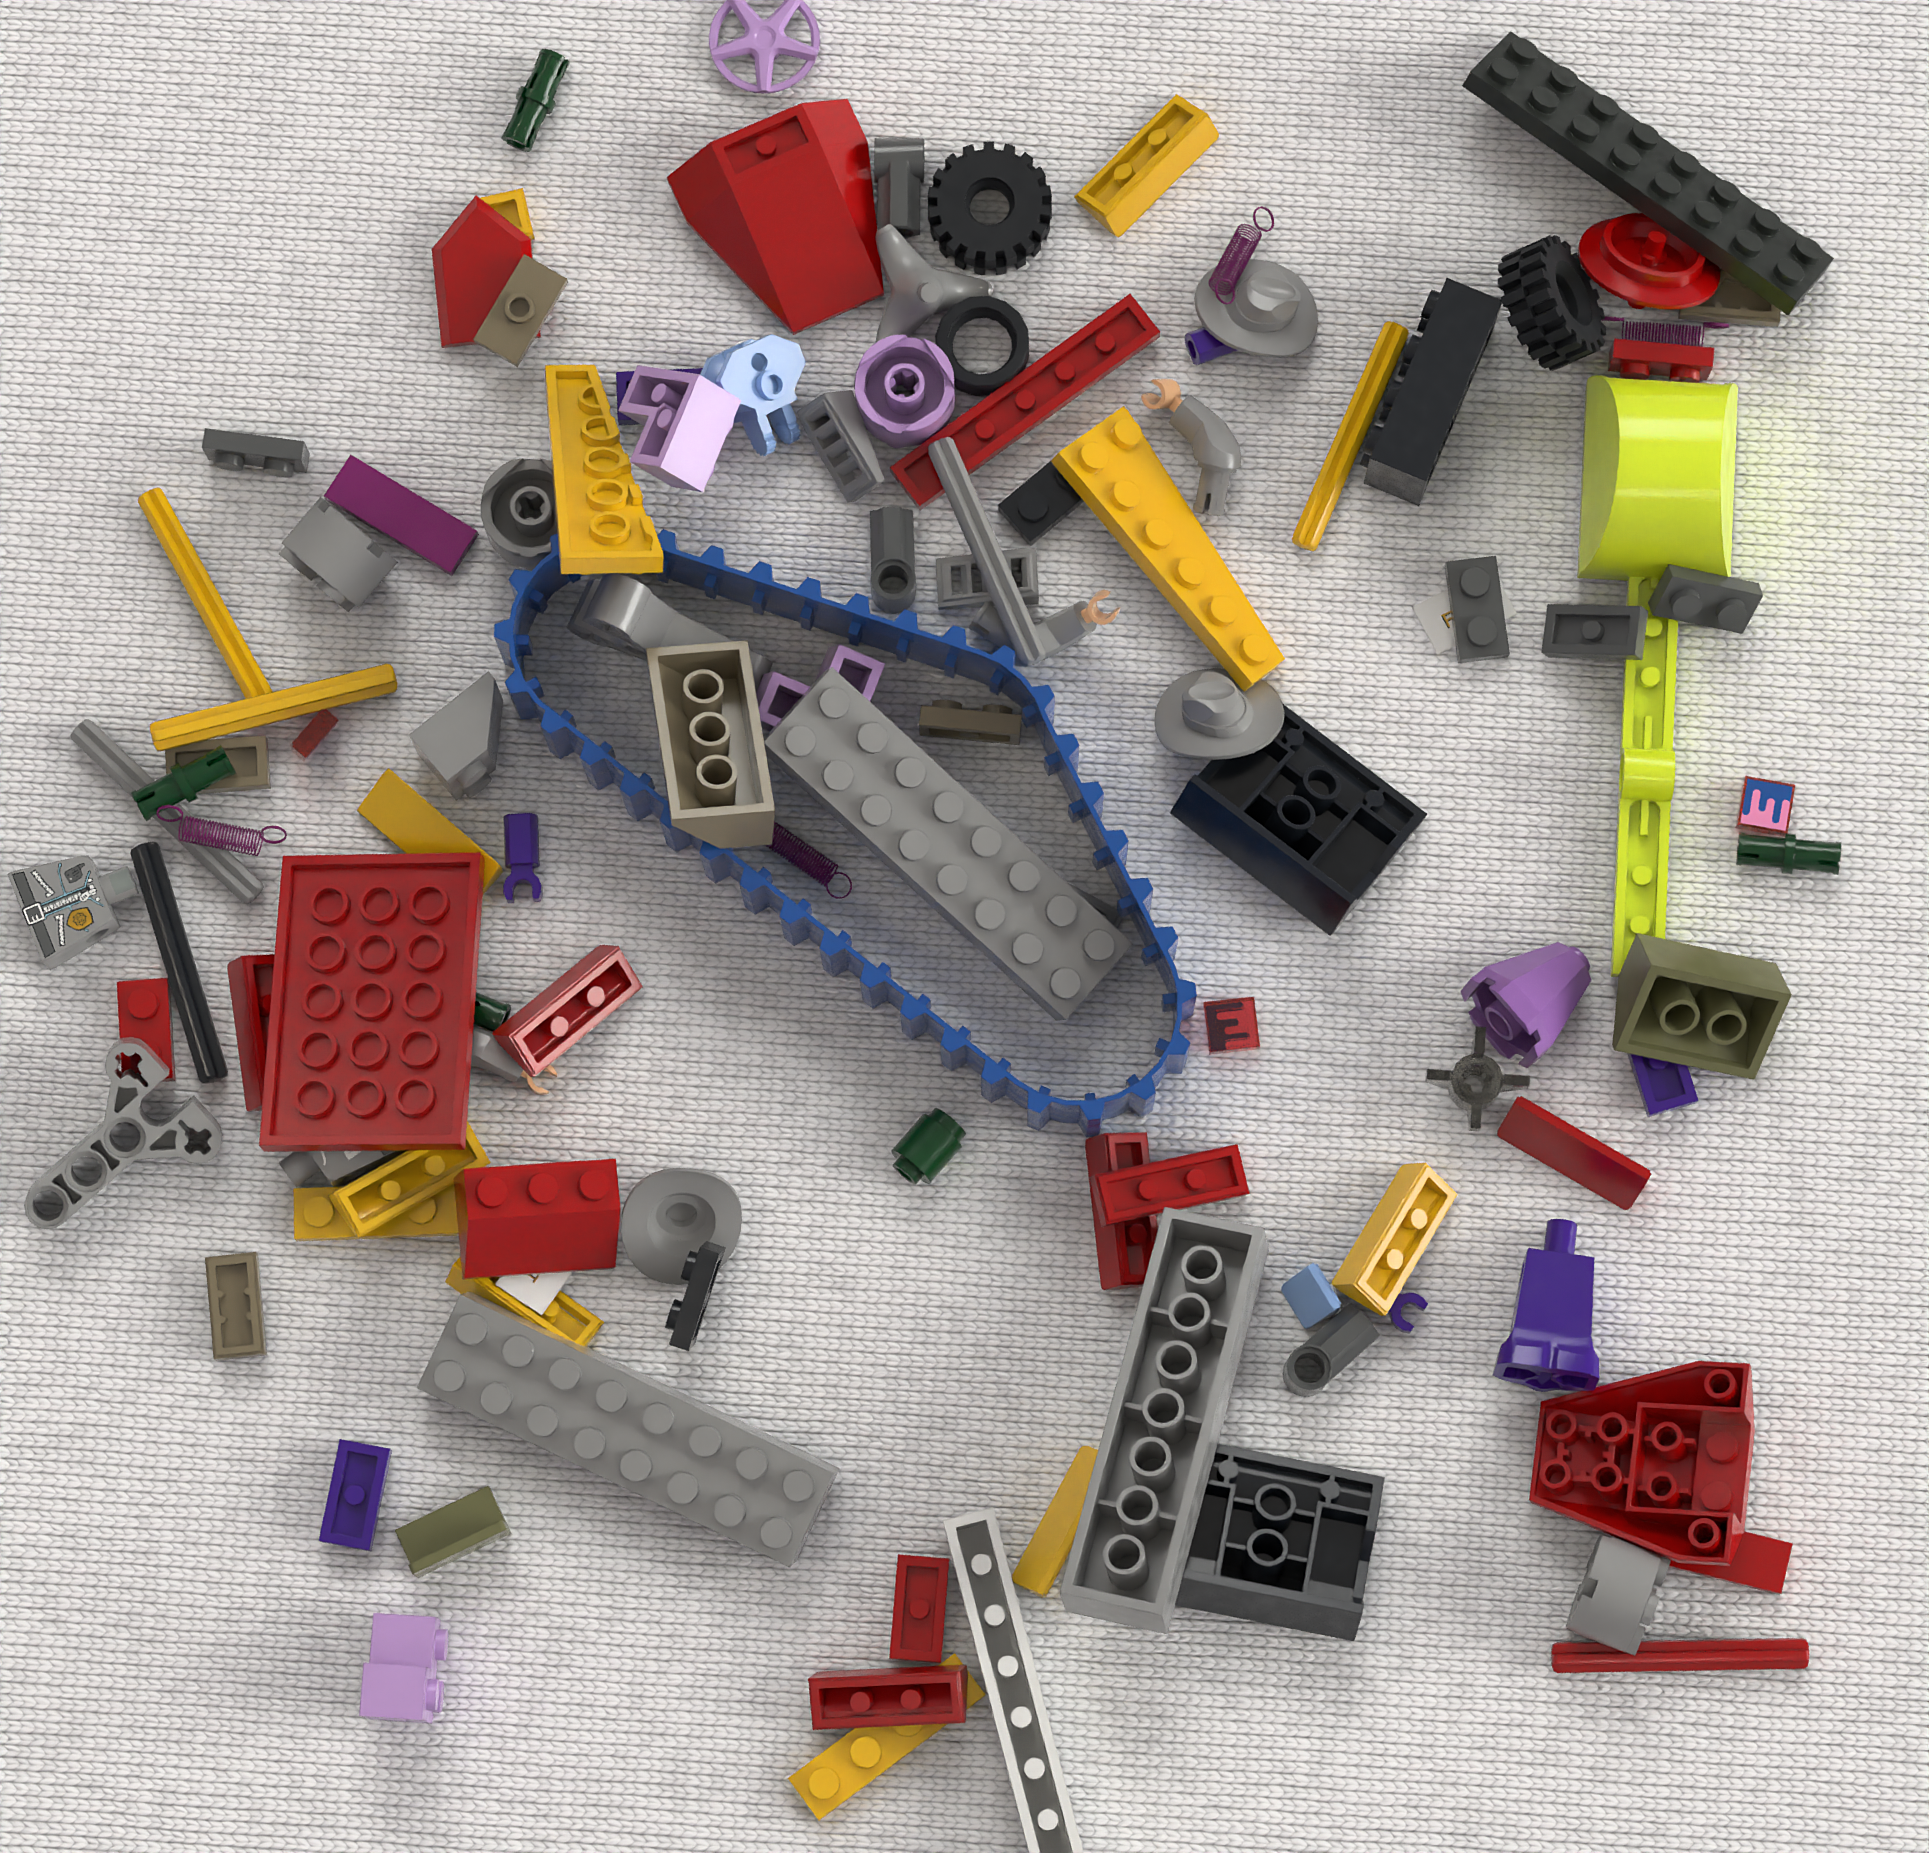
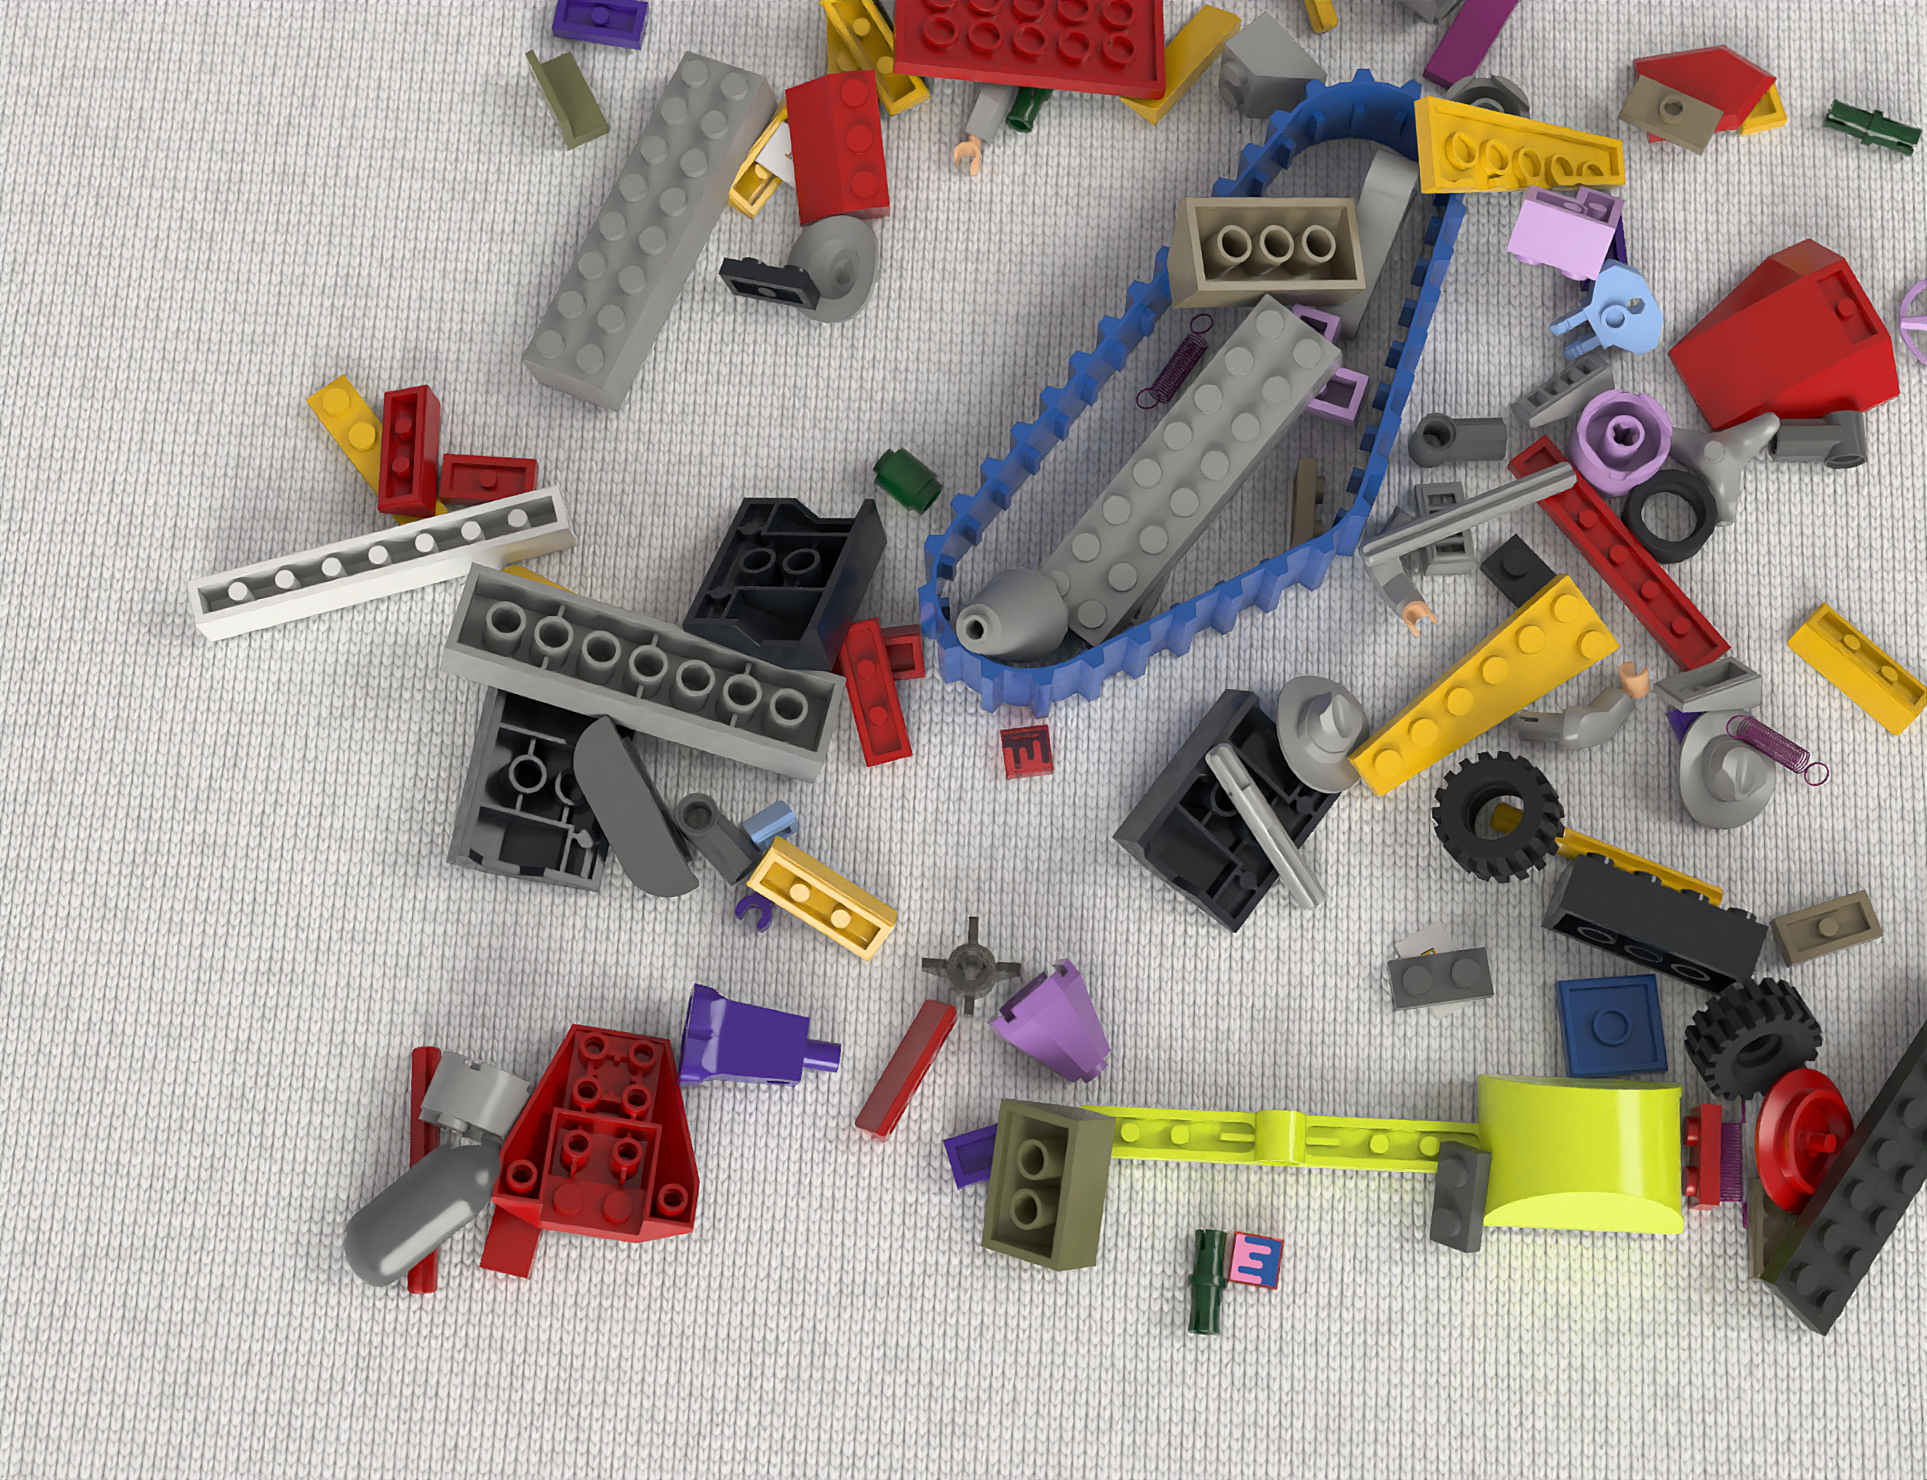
camera: 90 degrees right, 5 degrees down
(402, 1669) = (441, 55): lavender brick -> none
(521, 854) = (1166, 136): dark purple bar -> none
(568, 1009) = (1027, 172): red slope -> none
(995, 244) = (1784, 545): black tyre -> none
(1055, 1270) = (788, 582): none -> black piece
(1104, 1027) = (1015, 617): none -> light grey cone
(1158, 299) = (1712, 687): none -> light grey slope
(1308, 1436) = (632, 812): none -> dark grey brick
(1323, 582) = (1474, 788): none -> black tyre
(1326, 775) = (1265, 826): none -> light grey axle
(1426, 223) = (1826, 928): none -> dark tan plate
(1525, 442) = (1611, 1026): none -> blue tile
(1594, 631) = (1421, 1088): dark grey plate -> none
(1737, 1643) = (421, 1210): none -> dark grey brick

